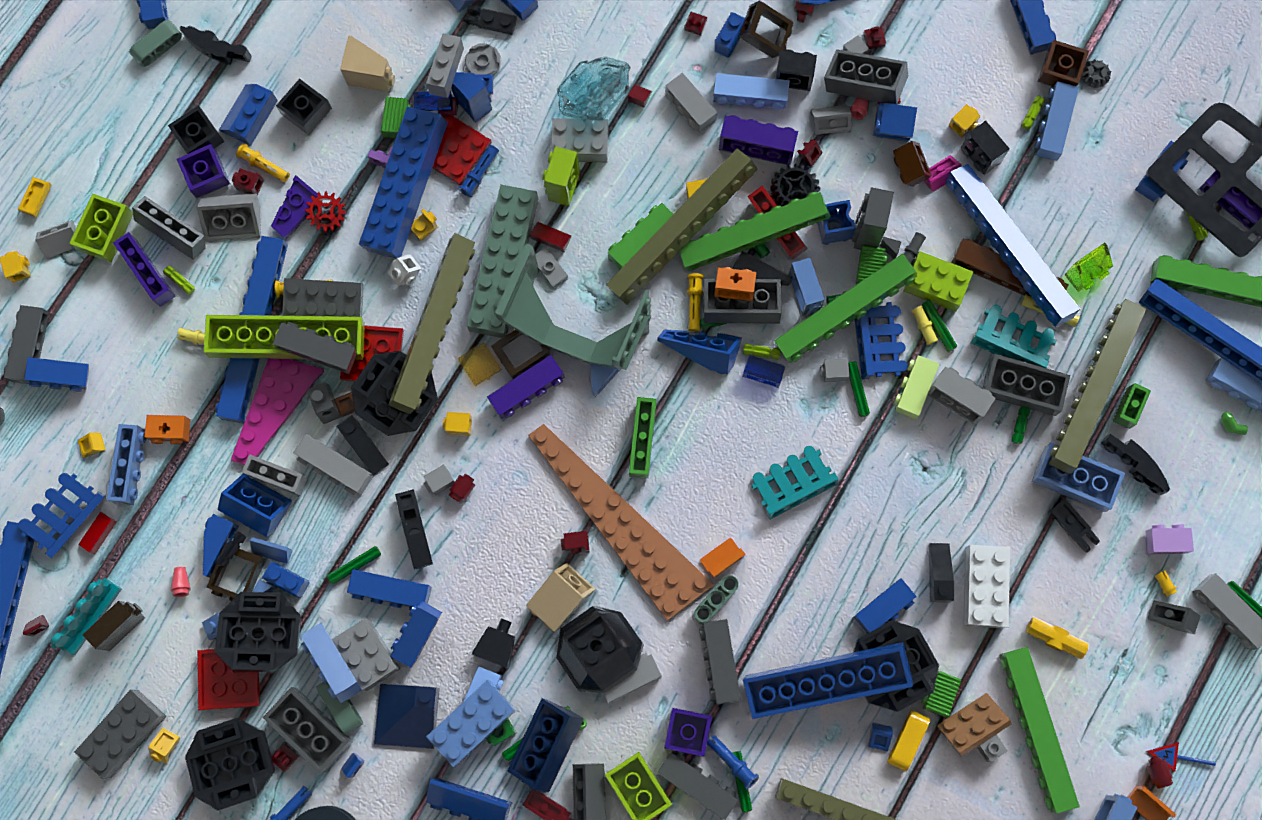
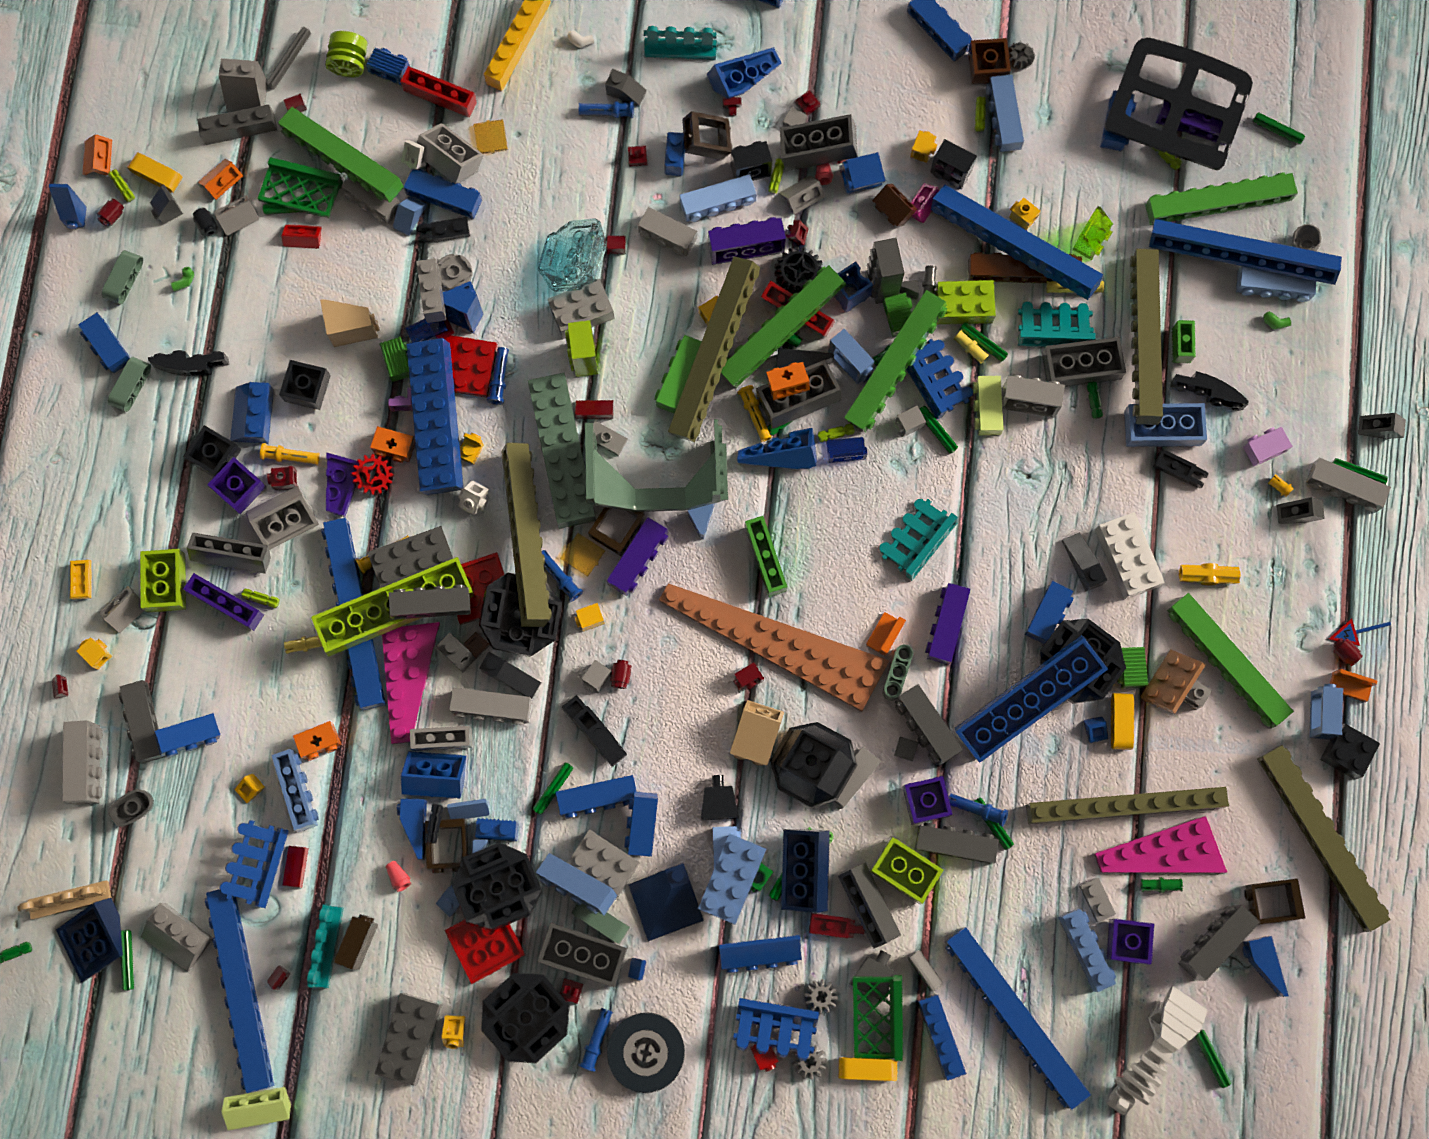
camera: 30 degrees left, 0 degrees up
(352, 184) = (384, 438): none -> orange brick
(450, 381) = (564, 582): none -> blue pin
(692, 674) = (906, 748): none -> dark grey tile
(784, 575) = (948, 623): none -> dark purple brick
(814, 93) = (776, 176): none -> lime axle
(1032, 222) = (1024, 213): none -> yellow brick

